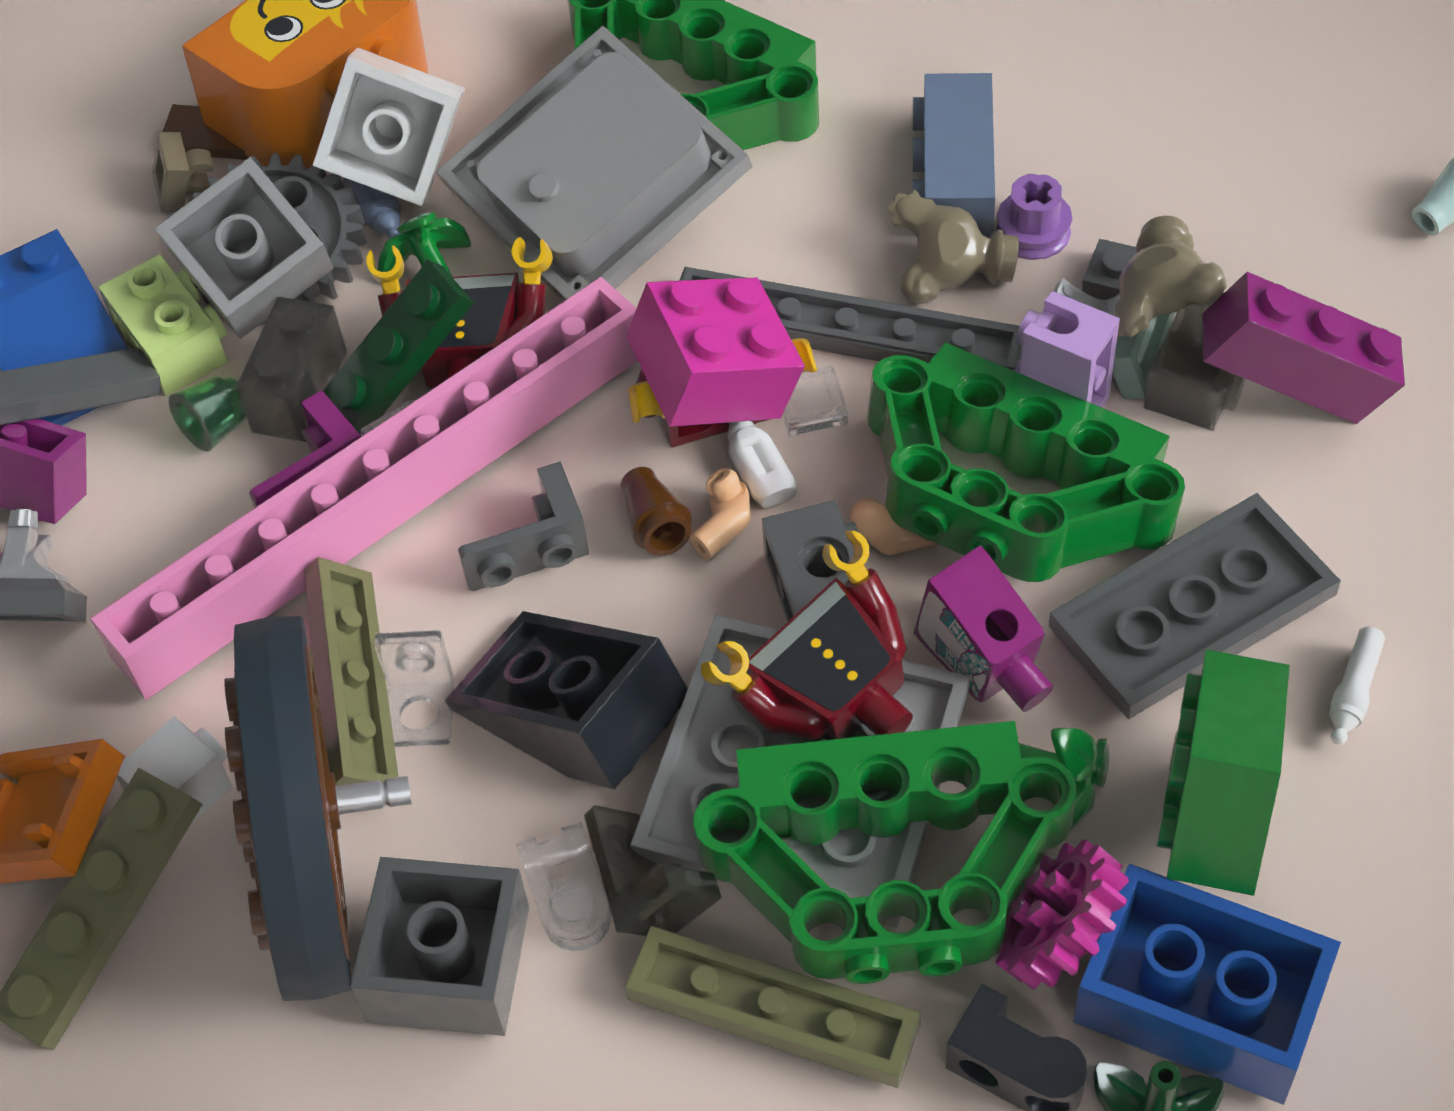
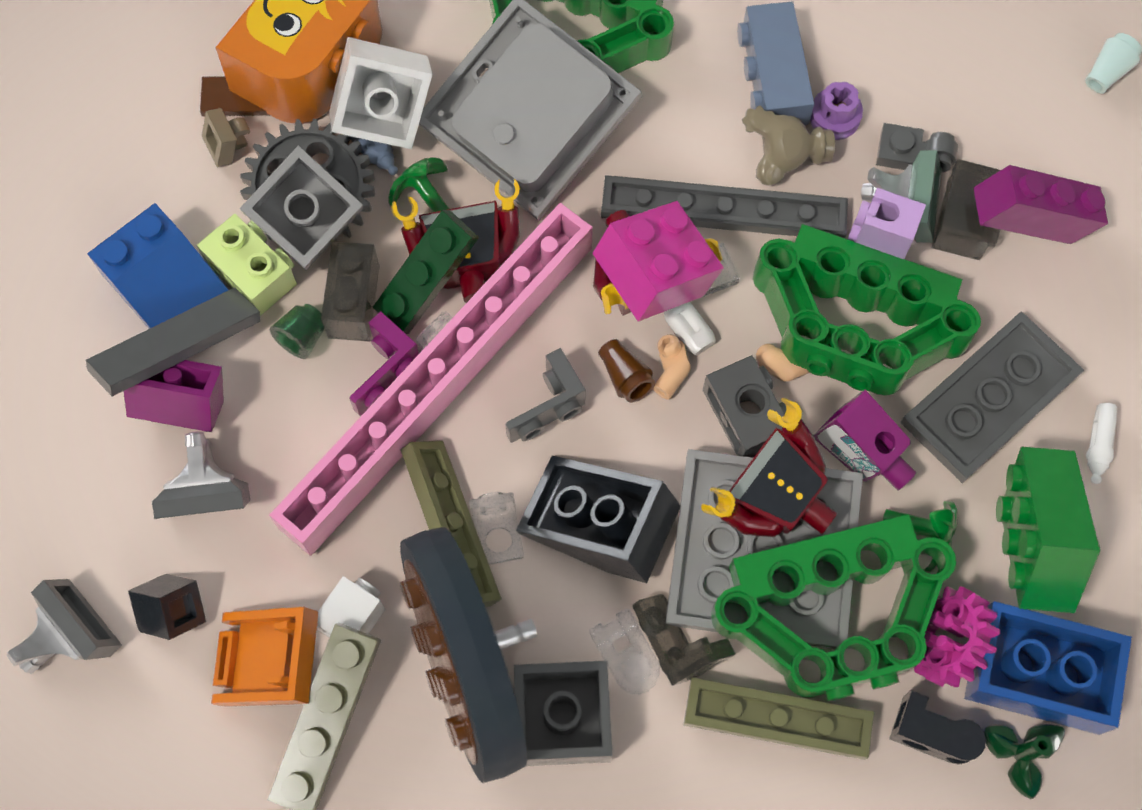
camera: 15 degrees left, 15 degrees up
(1164, 276) = (946, 163): dark tan animal -> none

